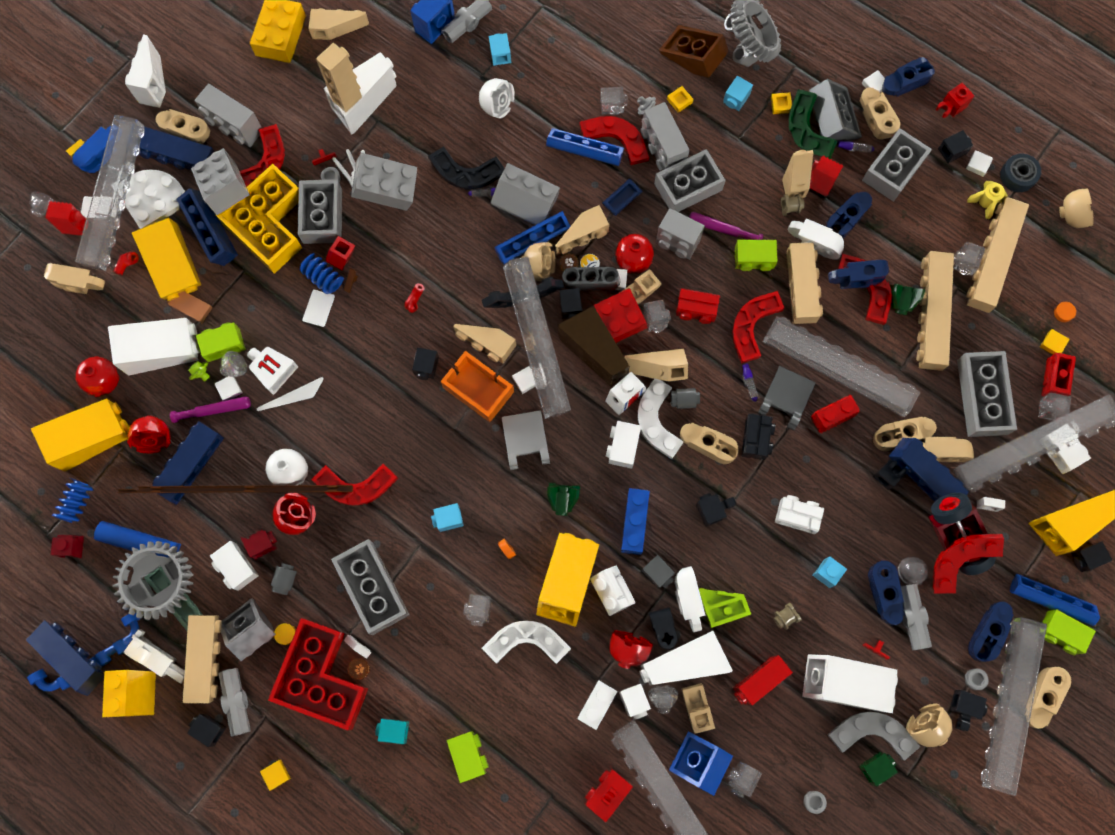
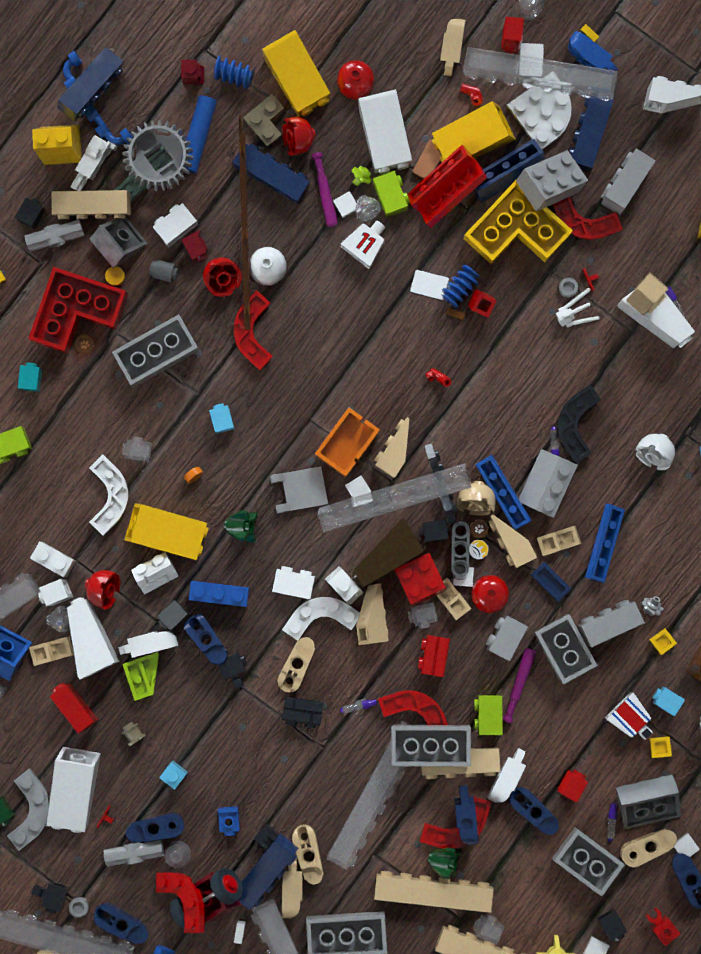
camera: 90 degrees right, 10 degrees up
(129, 474) = (260, 120): none -> dark tan plate
(172, 120) = (624, 123): tan piece -> none
(216, 283) = (446, 186): none -> red slope
(302, 393) = (343, 277): white sticker -> none
(319, 211) = (526, 280): light grey brick -> none
(358, 647) = (108, 336): white tile -> none
(384, 181) = (557, 342): light grey brick -> none
(425, 363) = (370, 391): black brick -> none
(581, 189) = (559, 540): none -> tan slope
(612, 100) = (656, 571): clear brick -> none
(621, 130) = (627, 577): red plate -> none
(663, 624) = (125, 620): black piece -> none
(685, 398) = (340, 642): dark grey brick -> none
(698, 524) = (215, 650): none -> dark blue piece
(753, 127) = (630, 717): none -> torso
(789, 394) = (347, 743): dark grey flag -> none
(791, 204) = (544, 753): dark tan brick -> none
(791, 303) = (430, 745): none -> light grey brick
(798, 174) = (570, 758): tan slope -> none
(799, 514) = (227, 749): white brick -> none
(800, 126) = (630, 765): dark green plate -> none
(835, 414) = (326, 787): red brick -> none
(867, 515) = (232, 813): none -> blue brick
(931, 727) = (34, 860): tan cylinder -> none

